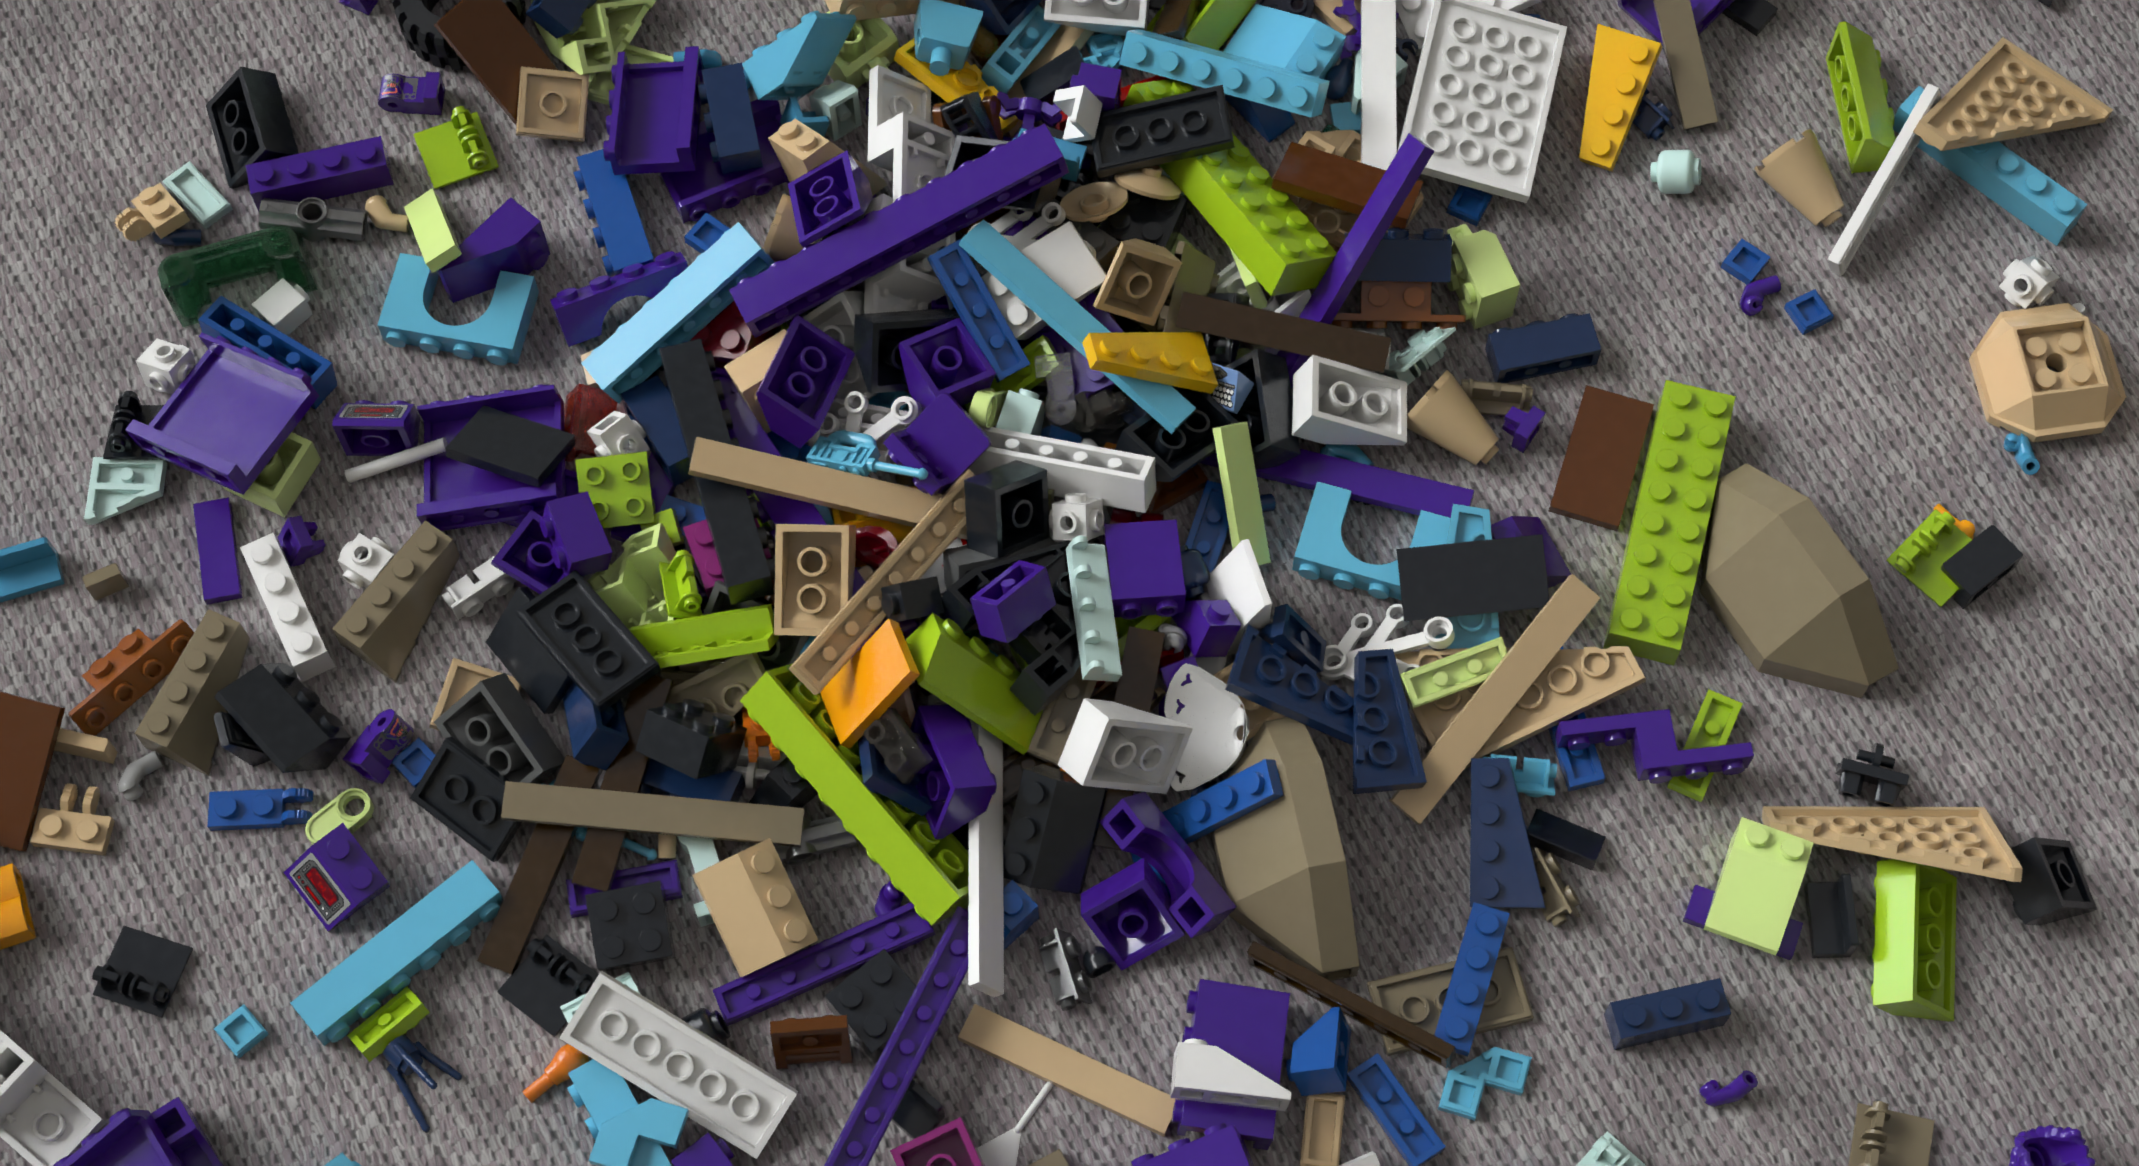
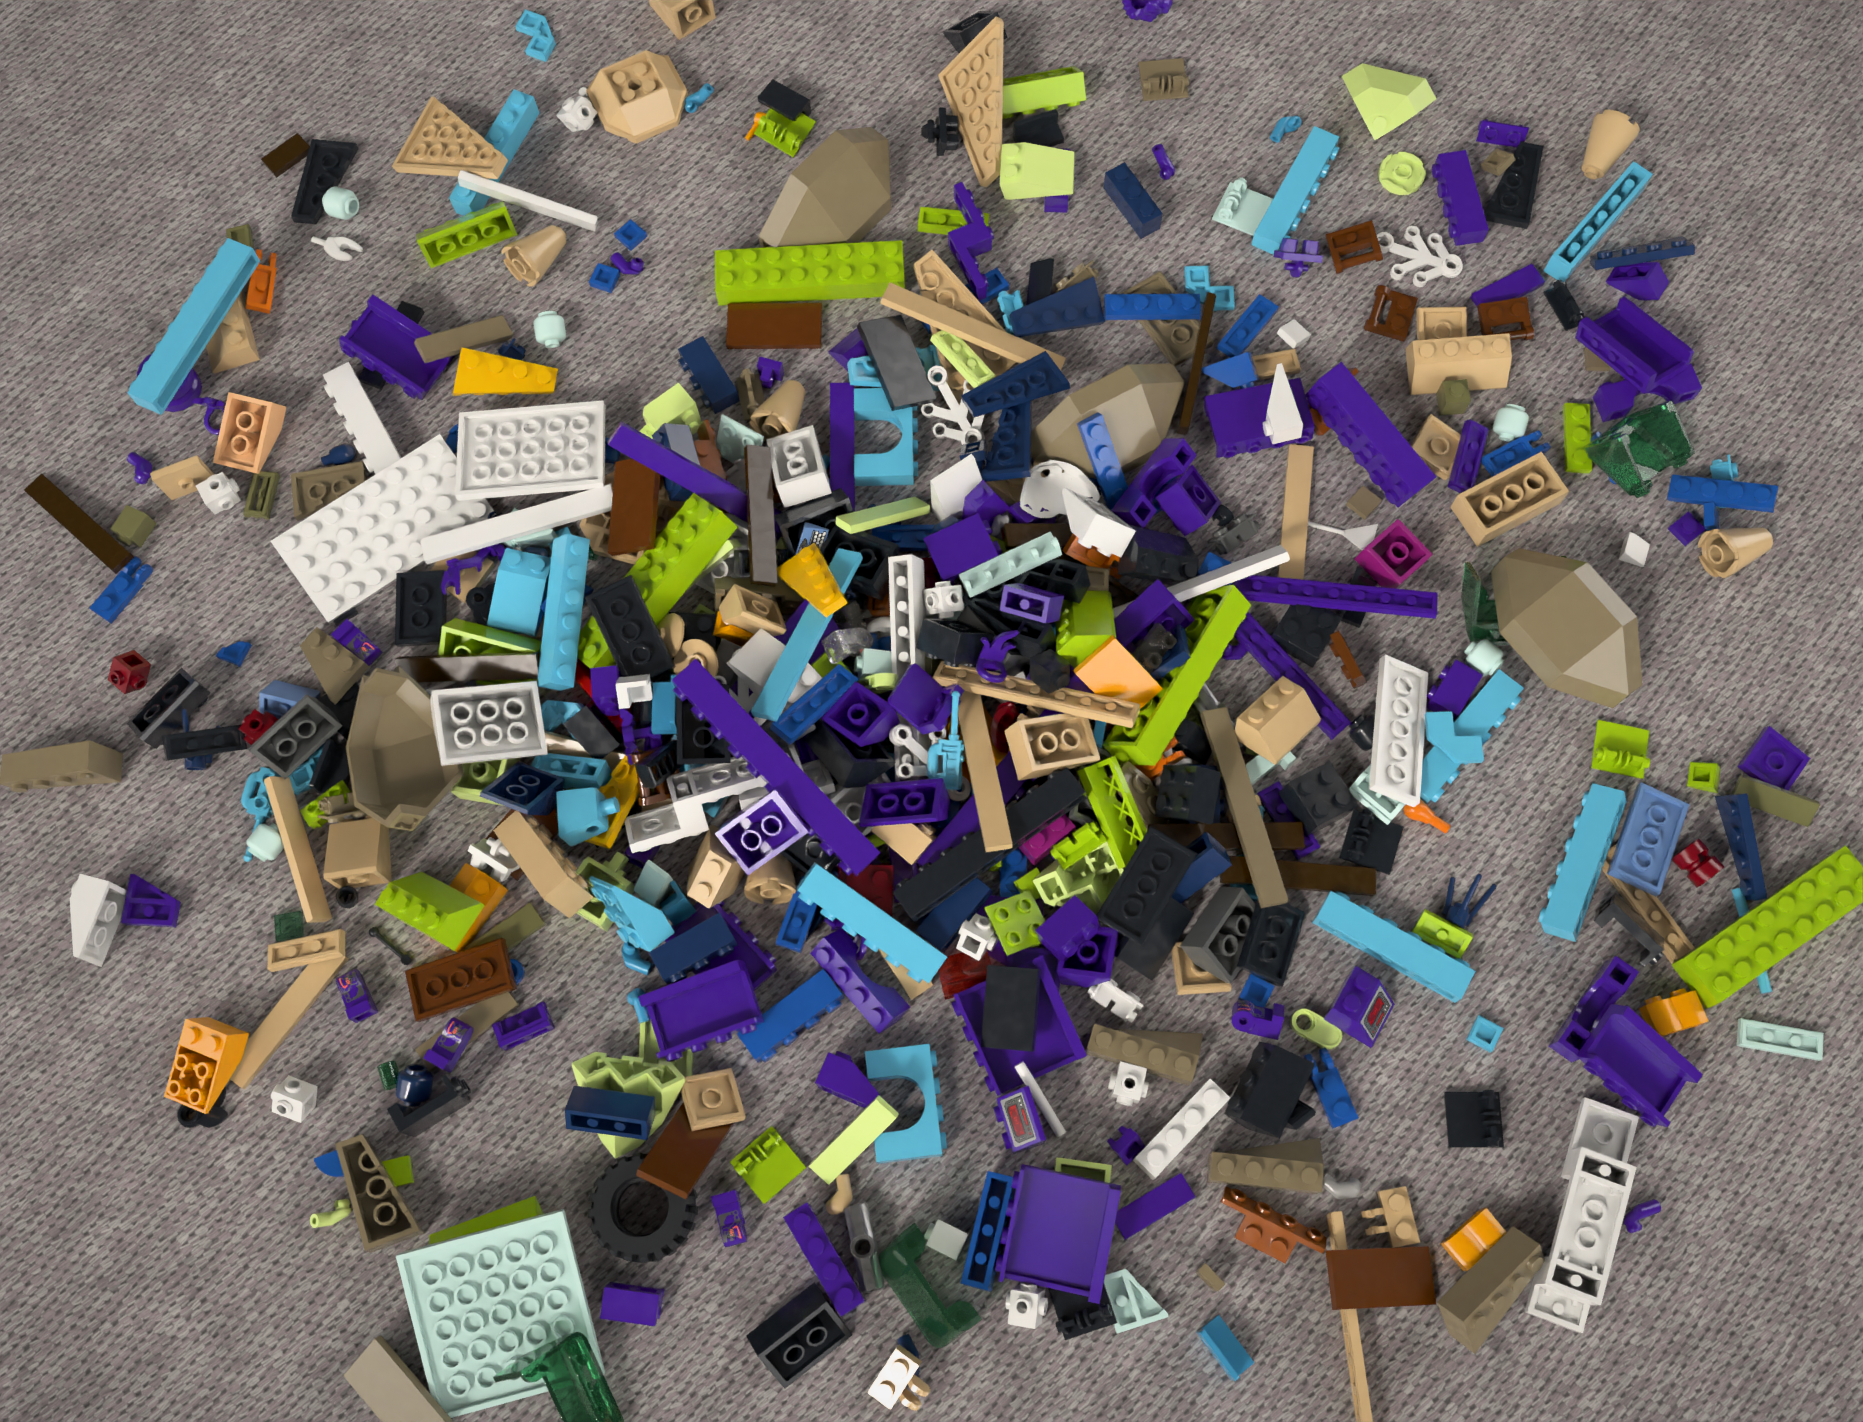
camera: 105 degrees left, 5 degrees up
(197, 195) = (867, 1358): light aqua tile -> none
(965, 547) = (992, 656): none -> dark purple piece

